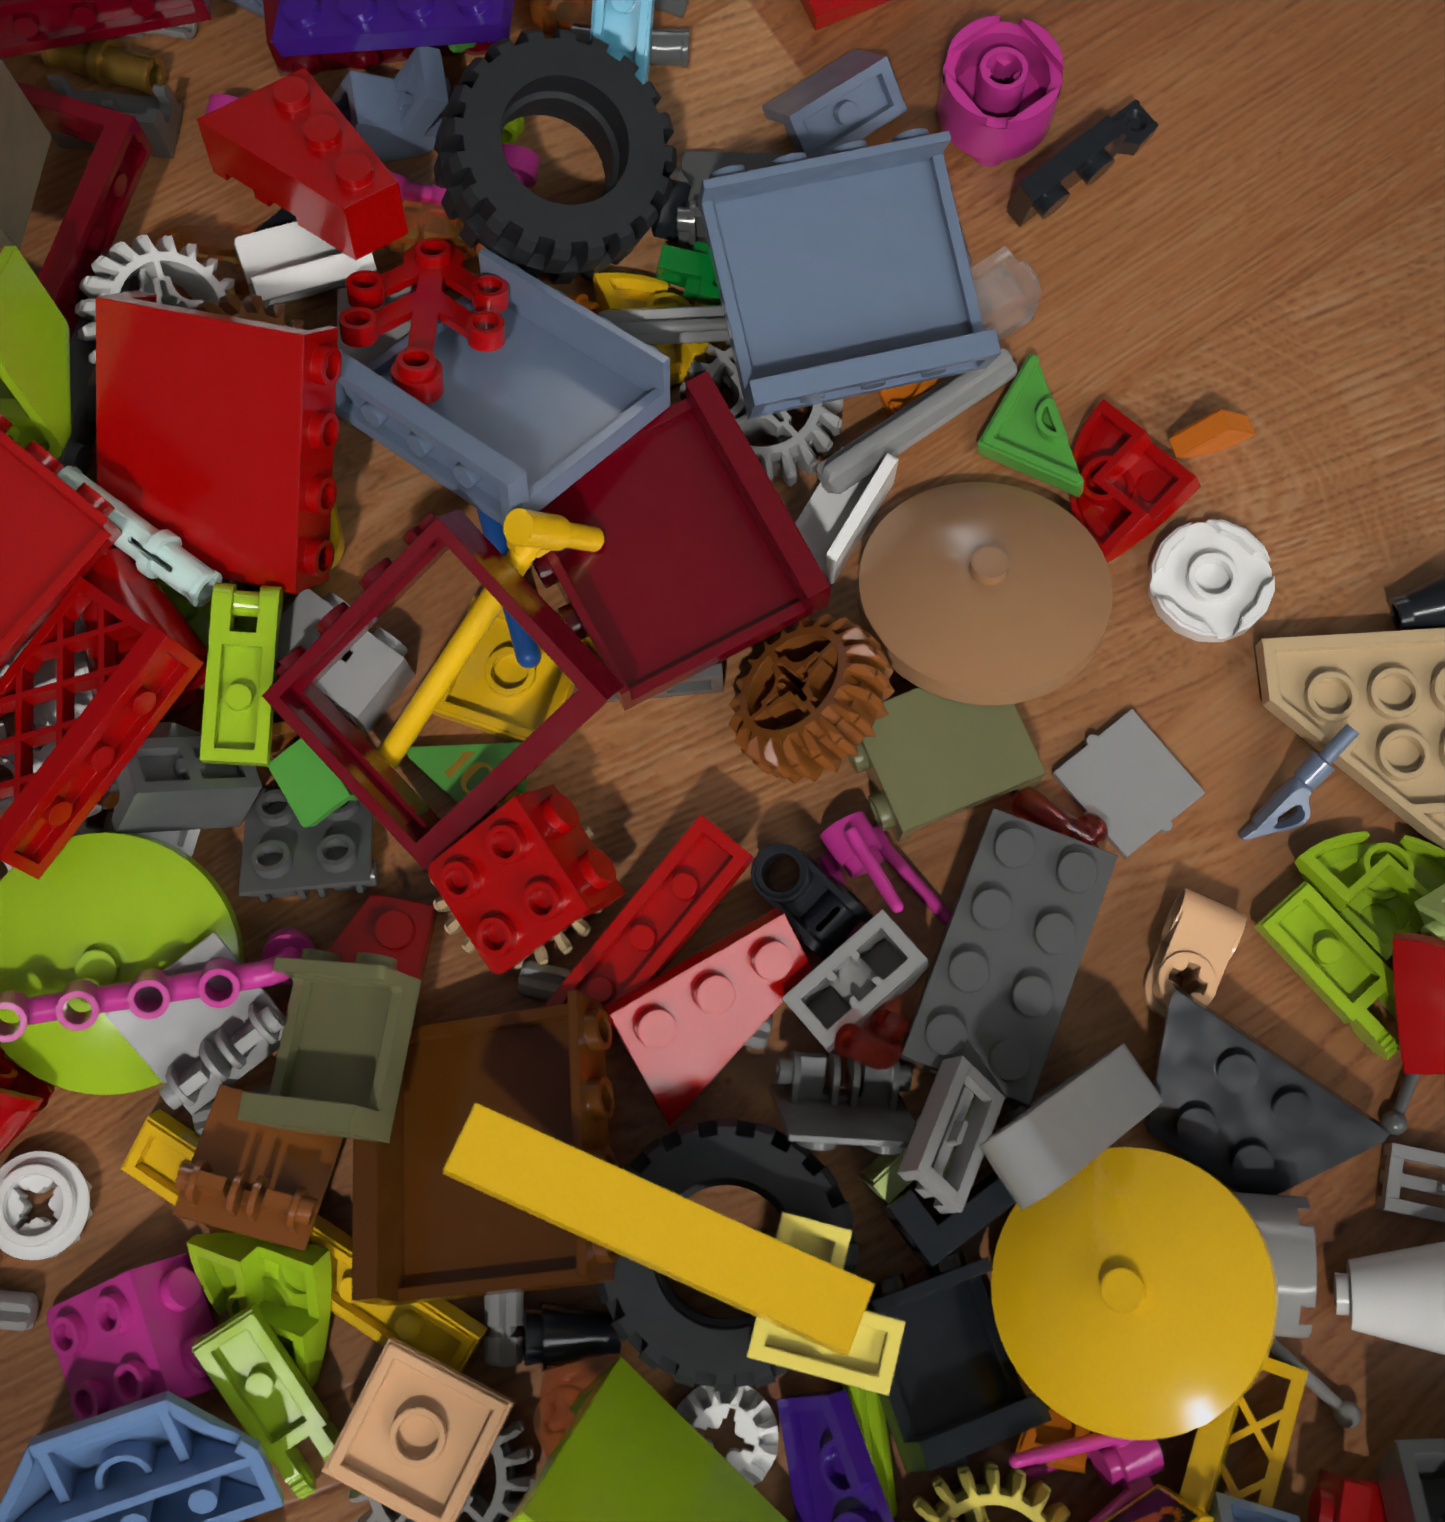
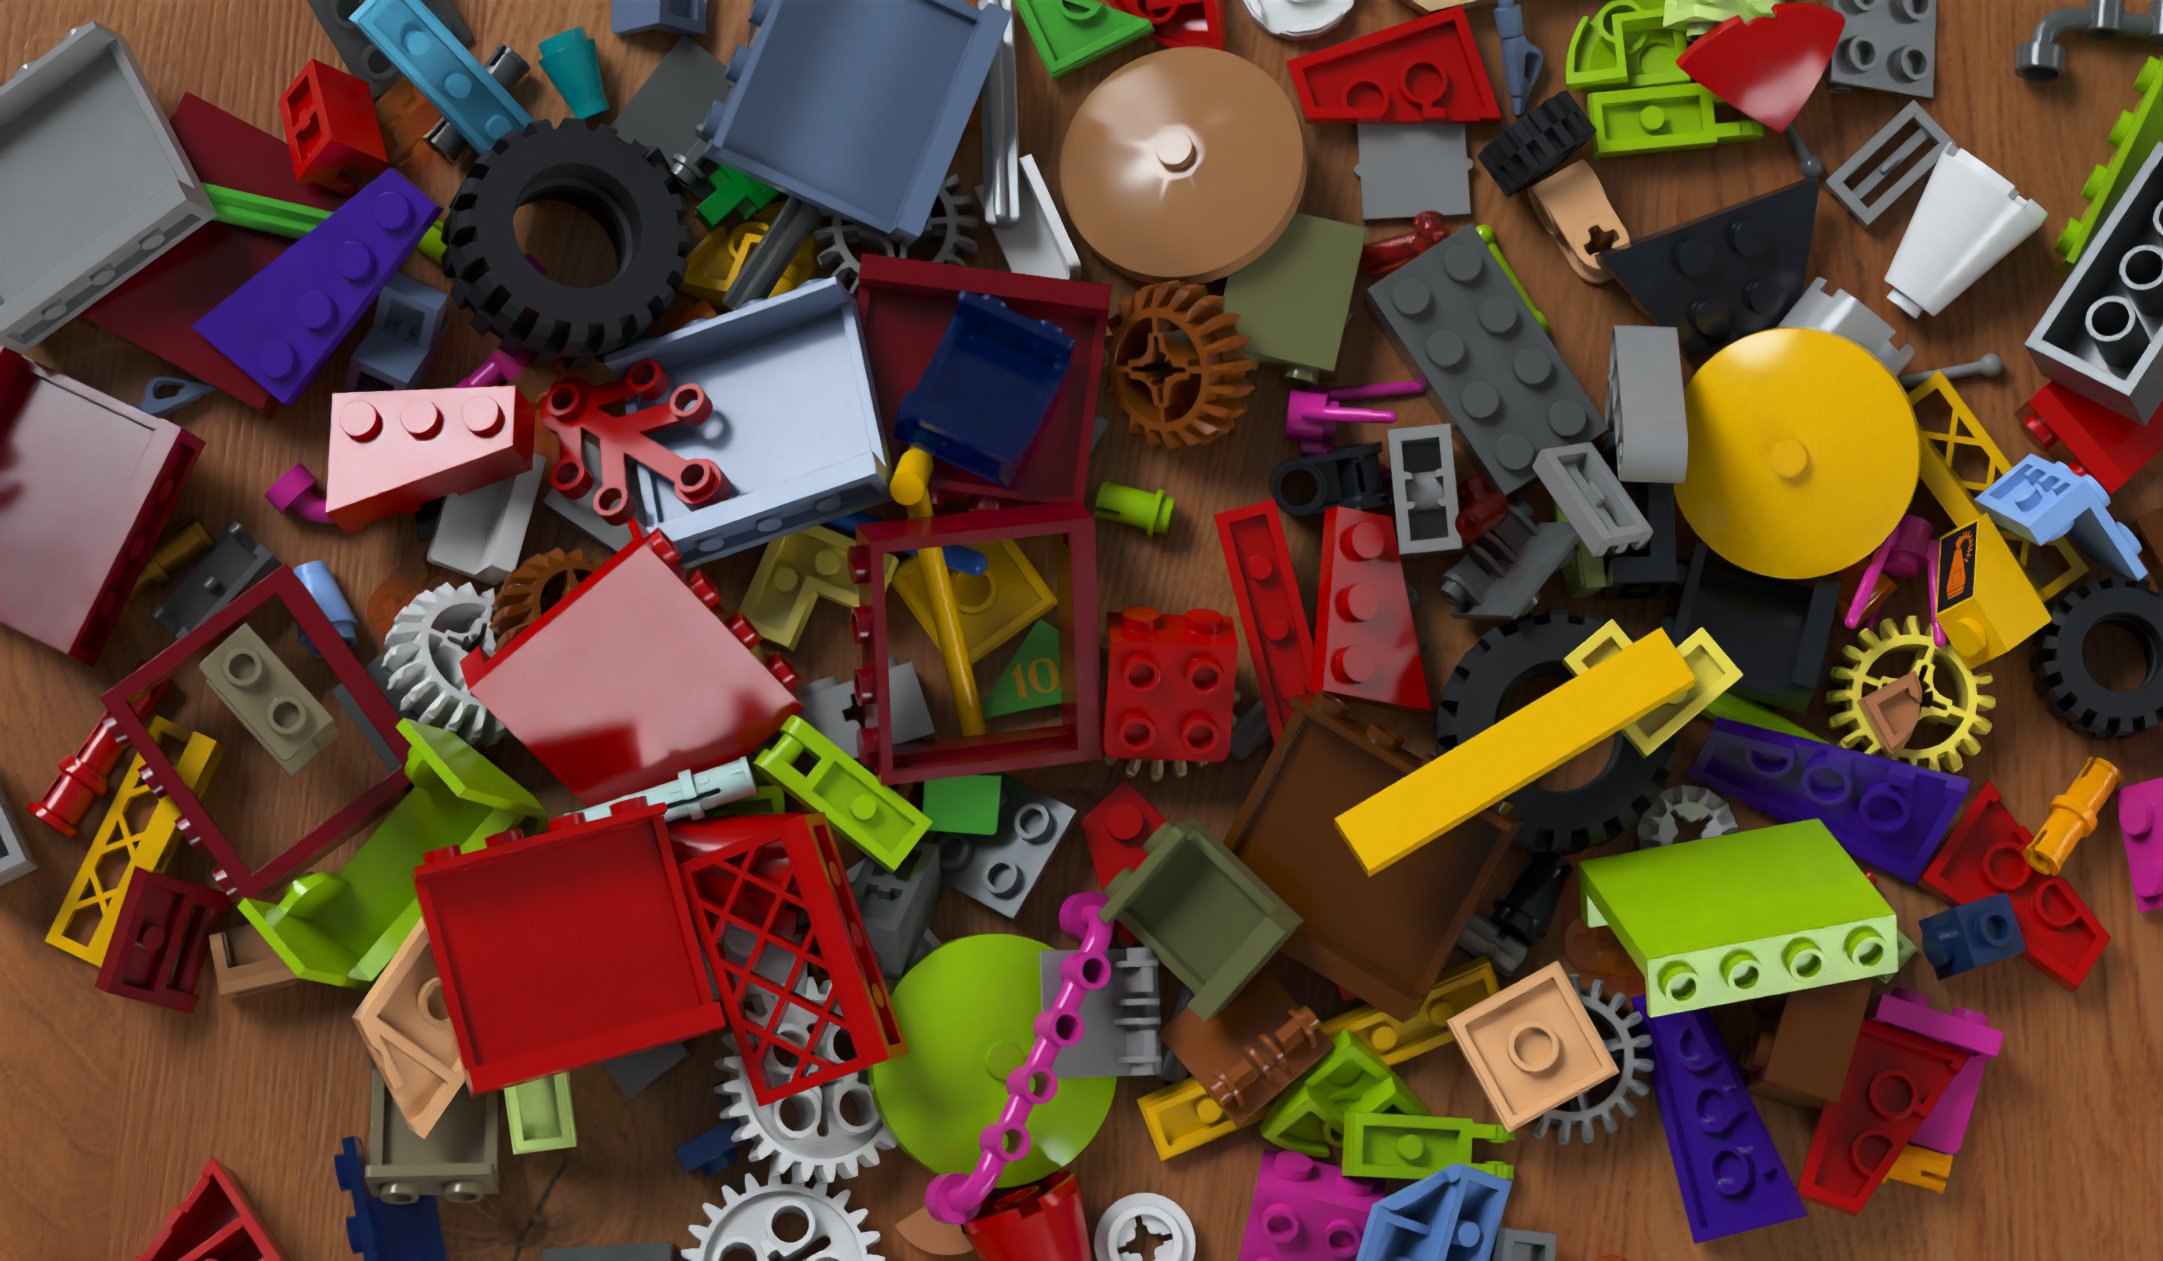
camera: 60 degrees left, 5 degrees up
(154, 200) = (328, 595): none -> light blue cone
(378, 530) = (792, 578): none -> light yellow plate
(664, 547) = (986, 388): none -> clear blue panel
(671, 754) = (1135, 507): none -> lime pin
(709, 94) = (575, 72): none -> teal cone
(1117, 884) = (1489, 236): none -> lime hinge
(1196, 715) = (1398, 76): none -> red wing
(1230, 865) = (1536, 143): none -> black tyre

